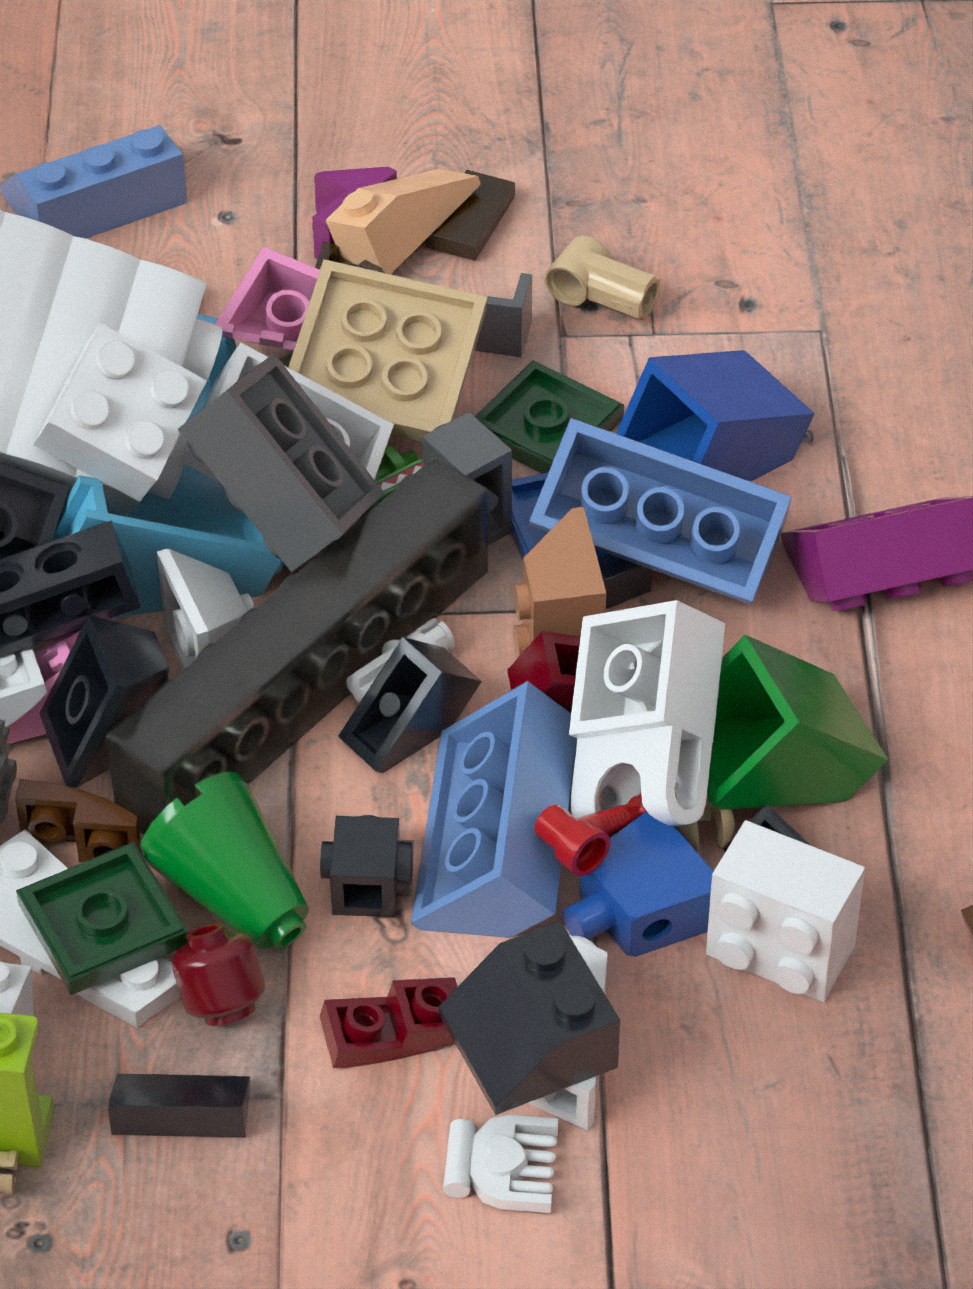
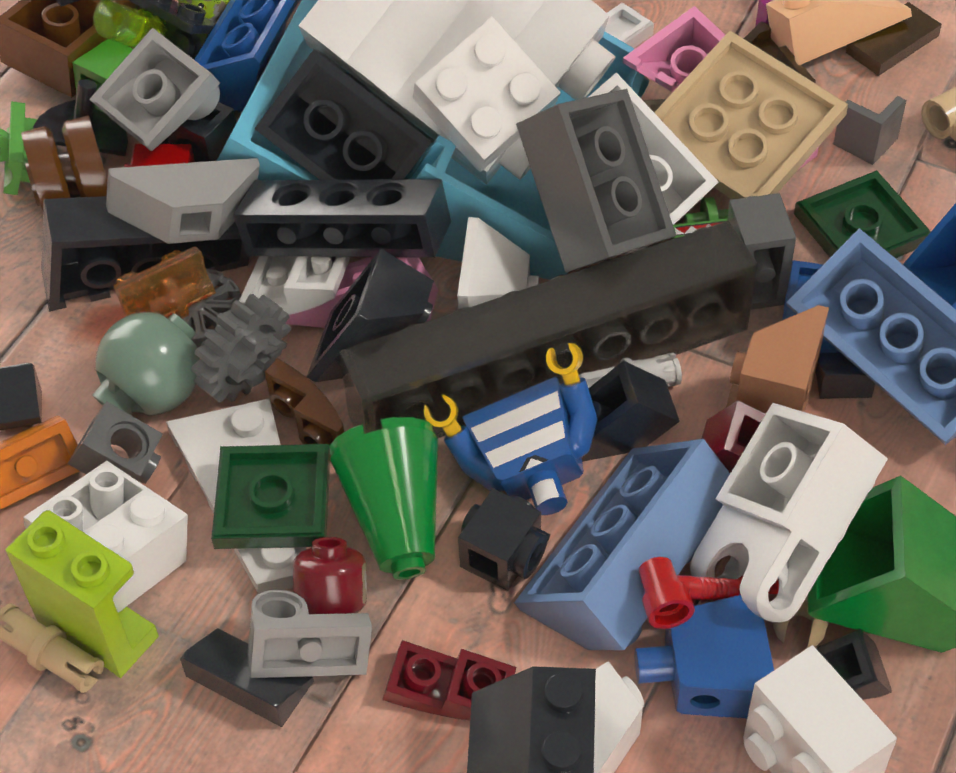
camera: 30 degrees right, 5 degrees up
(217, 1043) = (299, 644): none -> light grey plate
(338, 756) = (528, 439): none -> blue torso

